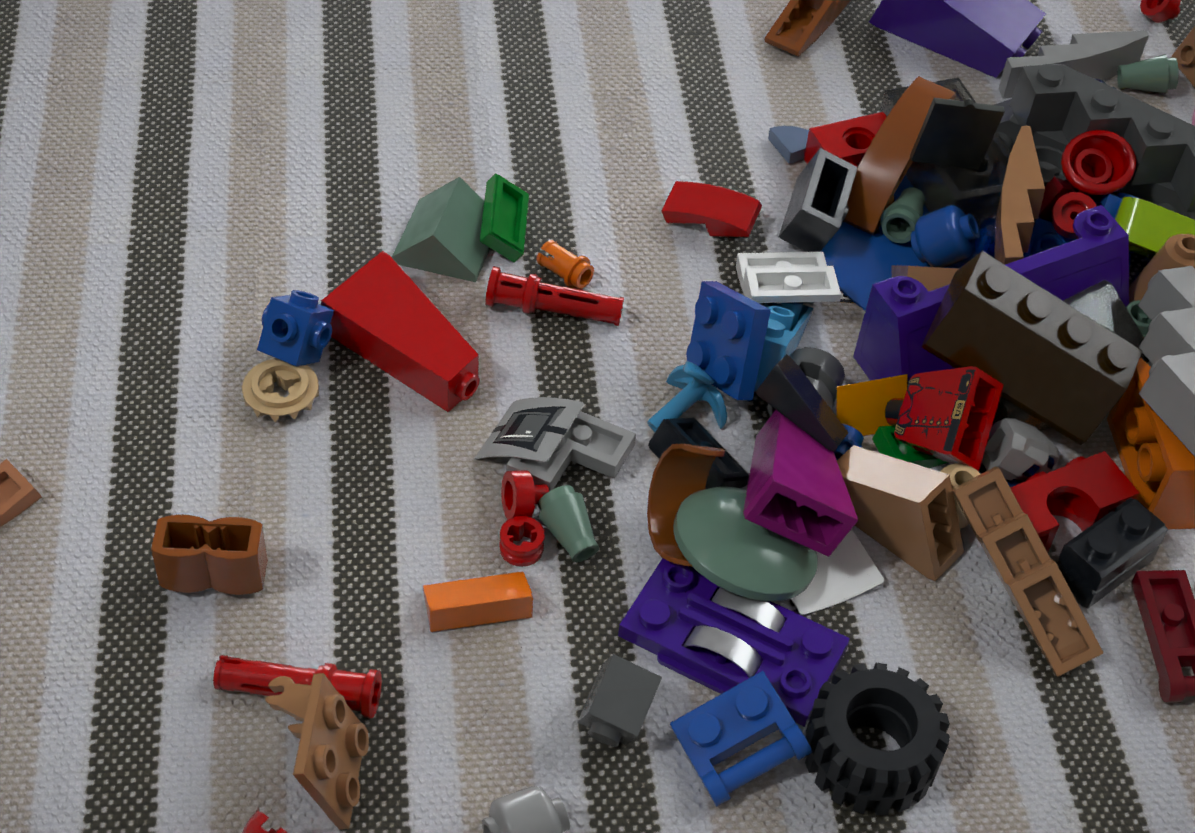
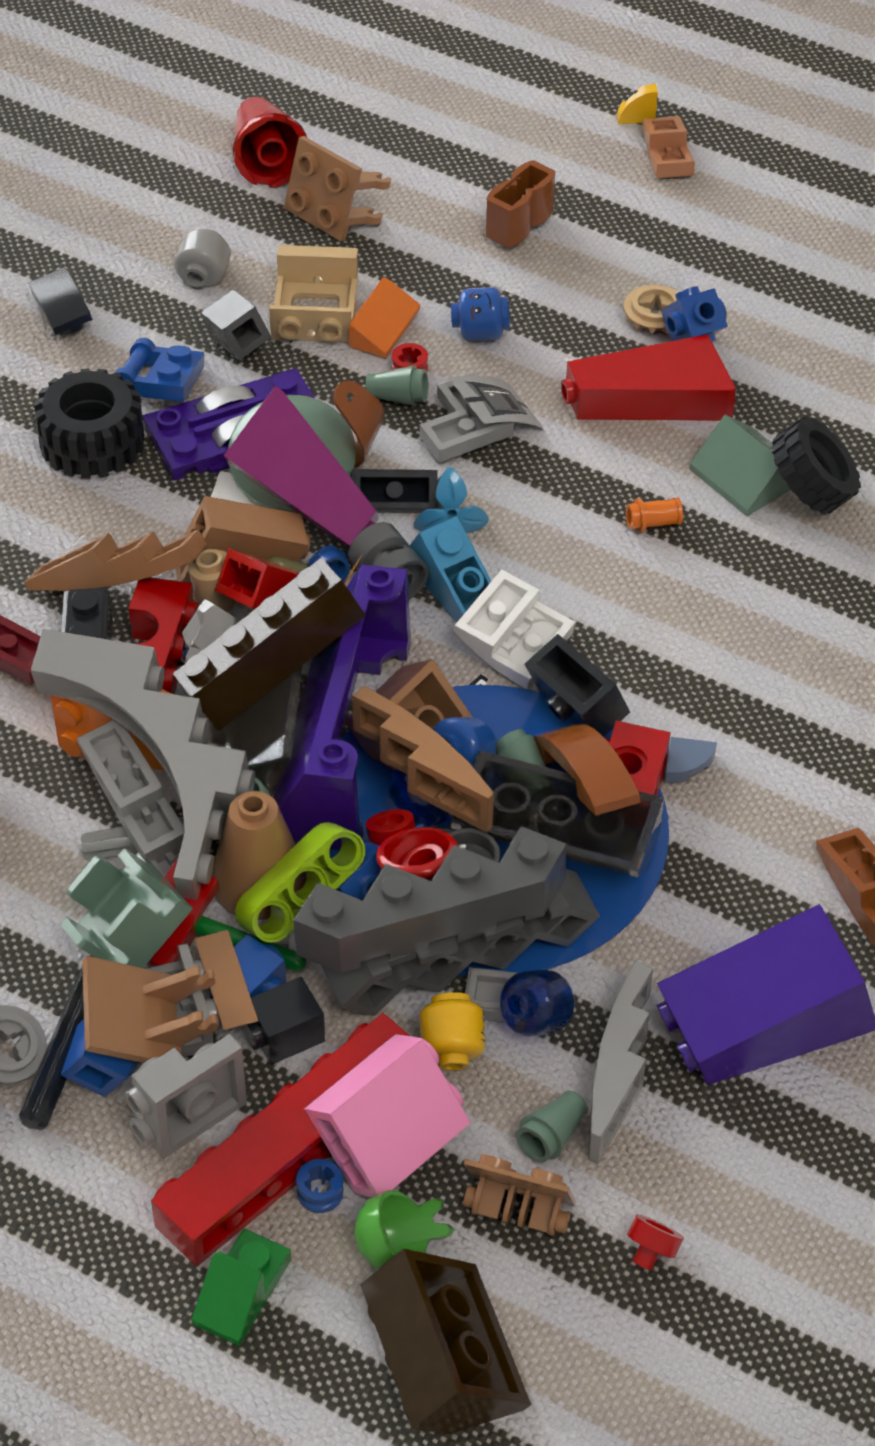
camera: 130 degrees right, 0 degrees up
(358, 689) = (382, 222): red pin -> none
(415, 502) = (481, 314): none -> blue head
(439, 163) = (816, 465): none -> black tyre
(458, 702) = (314, 274): none -> tan window
(504, 217) = (737, 500): green tile -> none
(520, 493) = (441, 366): red tile -> none
(532, 294) = (635, 475): red pin -> none
(719, 208) = (635, 634): red slope -> none
(728, 338) = (480, 514): blue plate -> none
(798, 400) = (353, 508): black slope -> none
(956, 133) = (527, 744): pearl dark grey piece -> none

